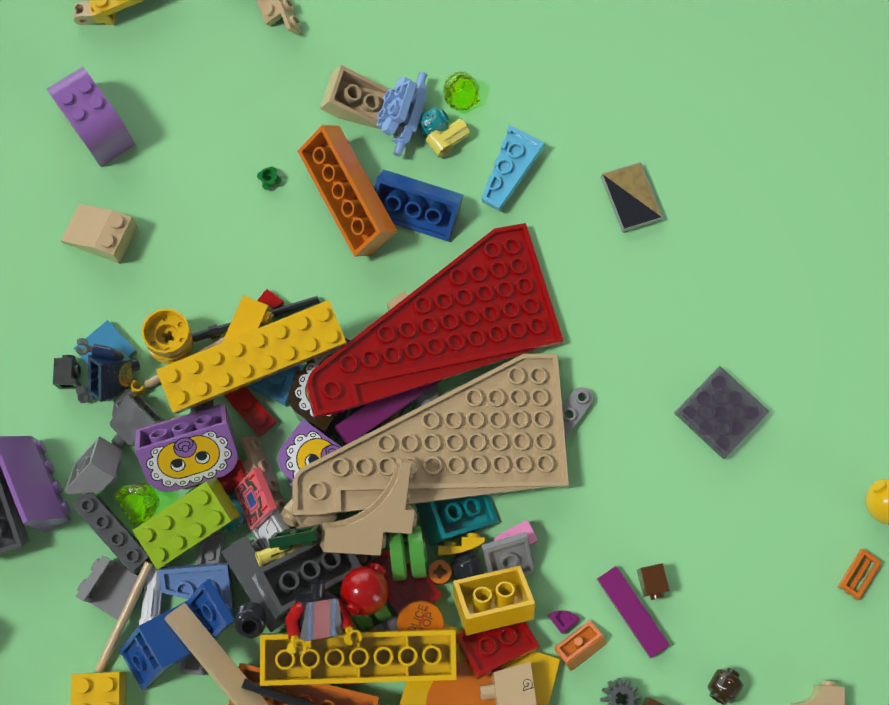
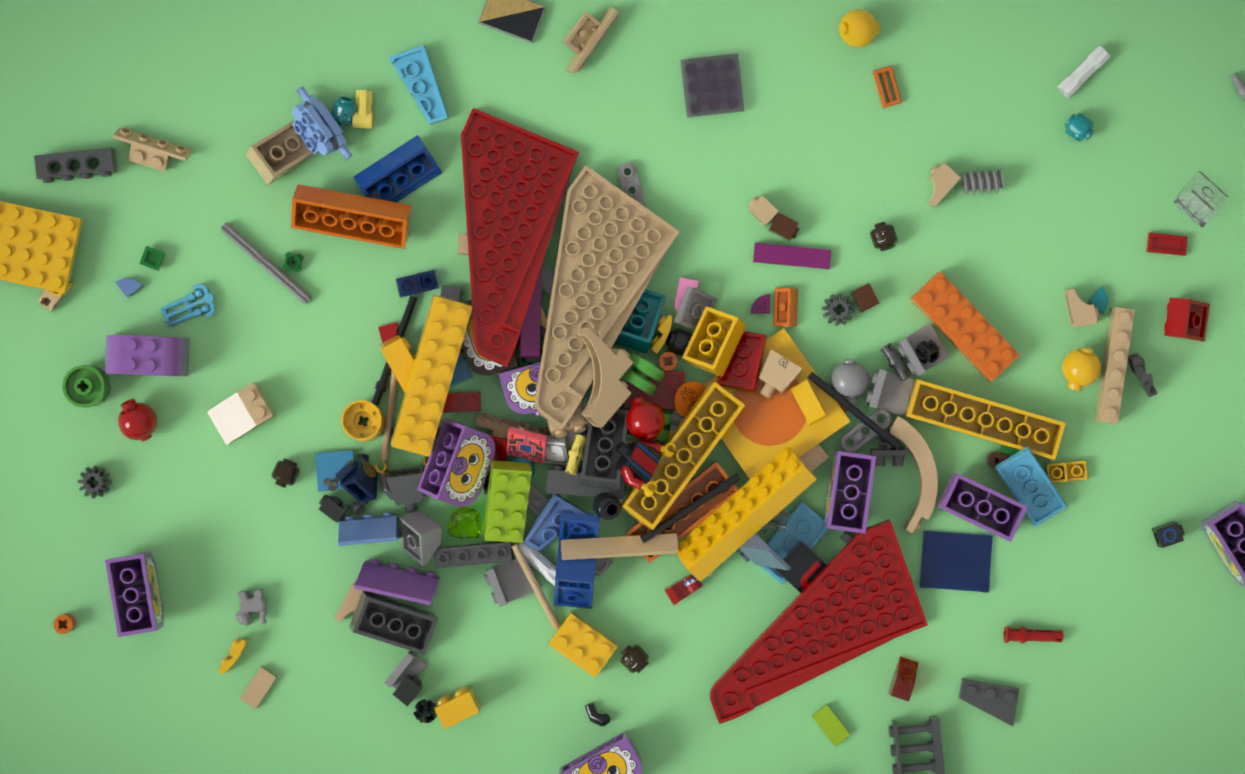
camera: 45 degrees left, 15 degrees up
(25, 89) = (75, 389): none -> bright green wheel
(25, 149) = (137, 420): none -> red brick
(66, 417) = (368, 529): none -> medium blue slope
(69, 307) = (285, 473): none -> dark brown head
(144, 65) = (129, 286): none -> medium blue tile
(172, 141) = (208, 298): none -> medium azure piece
(182, 65) = (152, 258): none -> green plate
(250, 157) = (266, 263): none -> light grey axle
(287, 538) = (573, 443): dark green plate -> none
(329, 290) = (417, 283): none -> clear blue slope
(348, 327) = (451, 292): none -> dark grey tile
(461, 91) = (335, 72): clear neon green hair -> none
(651, 547) = (762, 210): none -> tan brick
(667, 268) = (586, 35): none -> tan bracket

